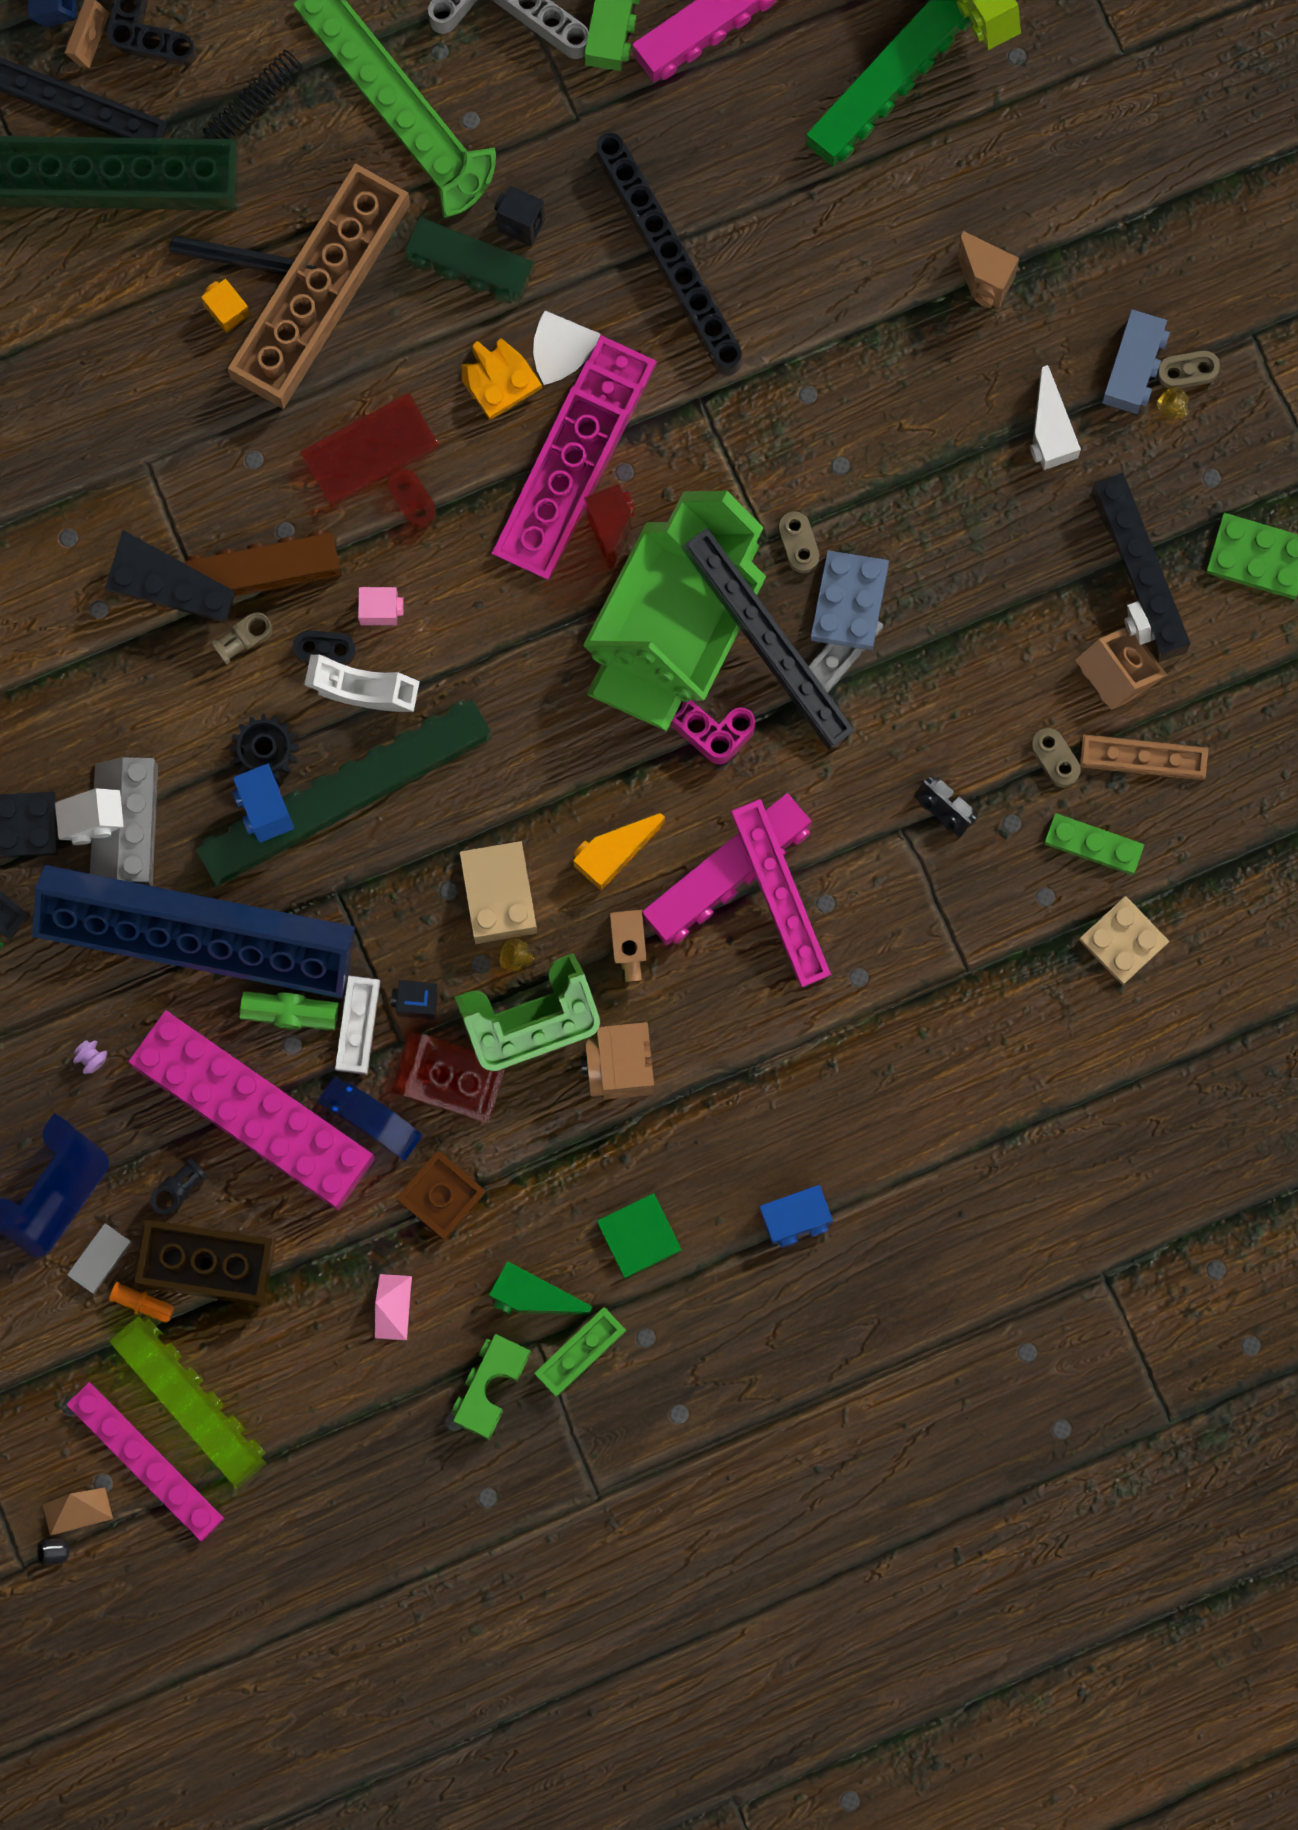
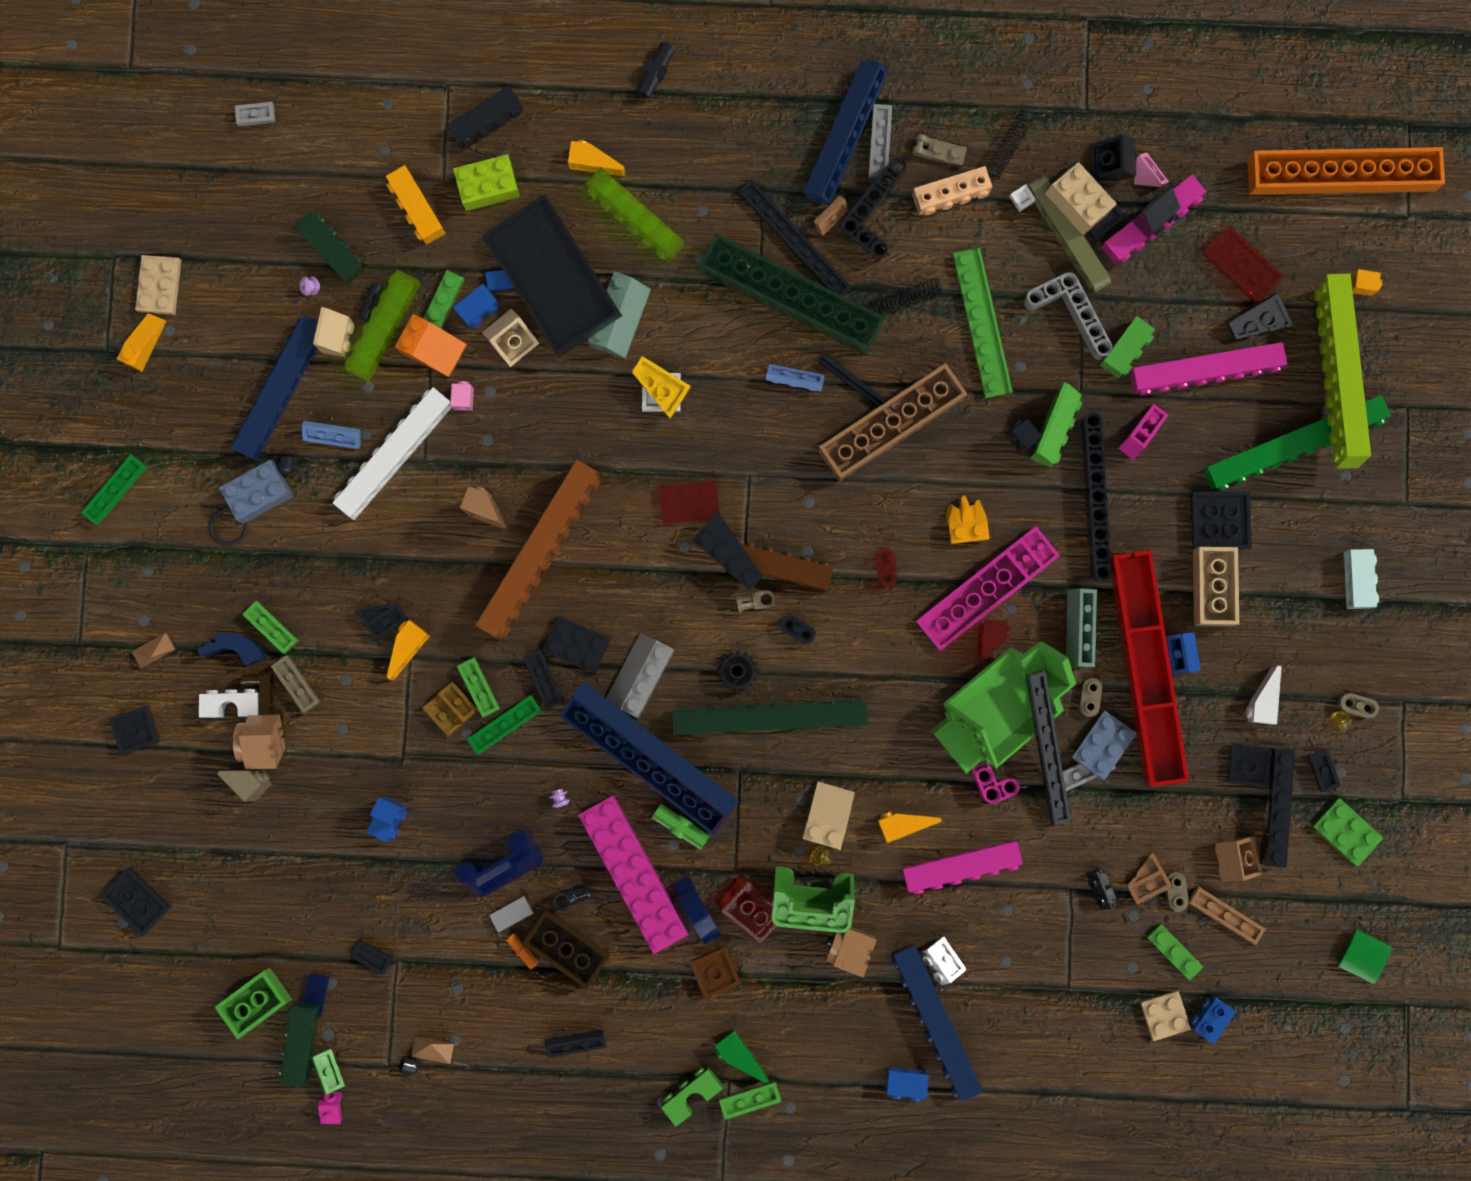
camera: 25 degrees right, 5 degrees up
(75, 542) = (689, 502): none -> clear red plate
(89, 815) = (622, 663): white brick -> none
(145, 1461) = (482, 1041): dark pink plate -> none
(146, 290) = (795, 377): none -> medium blue plate
(188, 1402) = (521, 1021): clear neon green brick -> none
(225, 305) = (834, 407): light orange brick -> none
(263, 803) = (721, 705): blue brick -> none
(284, 1395) = (575, 1043): none -> black plate
(357, 1025) = (714, 853): white plate -> none
(360, 687) = (808, 663): white arch -> none
(369, 449) = (876, 528): clear red plate -> none
(379, 606) = (839, 621): bright pink brick -> none
(392, 1307) = (659, 1021): bright pink slope -> none
(415, 999) = (753, 855): black brick -> none
(469, 183) = (1004, 402): bright green tile -> none
(470, 261) = (982, 447): clear green brick -> none
(561, 347) = (1009, 520): white sticker -> none
(562, 178) = (1056, 425): none -> bright green slope
(628, 927) = (889, 874): medium nougat torso -> none
(639, 1235) = (814, 1049): green tile -> none
(692, 129) = (1143, 432): none -> dark pink slope
(735, 447) = (1081, 627): none -> sand green brick
(764, 1019) = (942, 961): none -> white bracket
(780, 892) = (985, 897): dark pink plate -> none
(797, 1107) = (937, 1023): none -> dark blue brick
(860, 460) = (1148, 669): none -> red piece
(865, 201) = (1221, 519): none -> black plate
(899, 414) = (1183, 653): none -> blue brick
(901, 297) = (1216, 586): none -> tan brick
(986, 270) = (1272, 594): medium nougat slope -> none
(1008, 761) = (1149, 881): none -> medium nougat wing
(1073, 528) = (1249, 765): none -> black plate
(1105, 189) = (1360, 579): none -> light aqua brick
(1136, 362) = (1331, 687): sand blue brick -> none
(1137, 623) = (1261, 839): white plate -> none
(1183, 485) = (1323, 770): none -> black plate
(1191, 911) = (1212, 1019): none -> blue brick

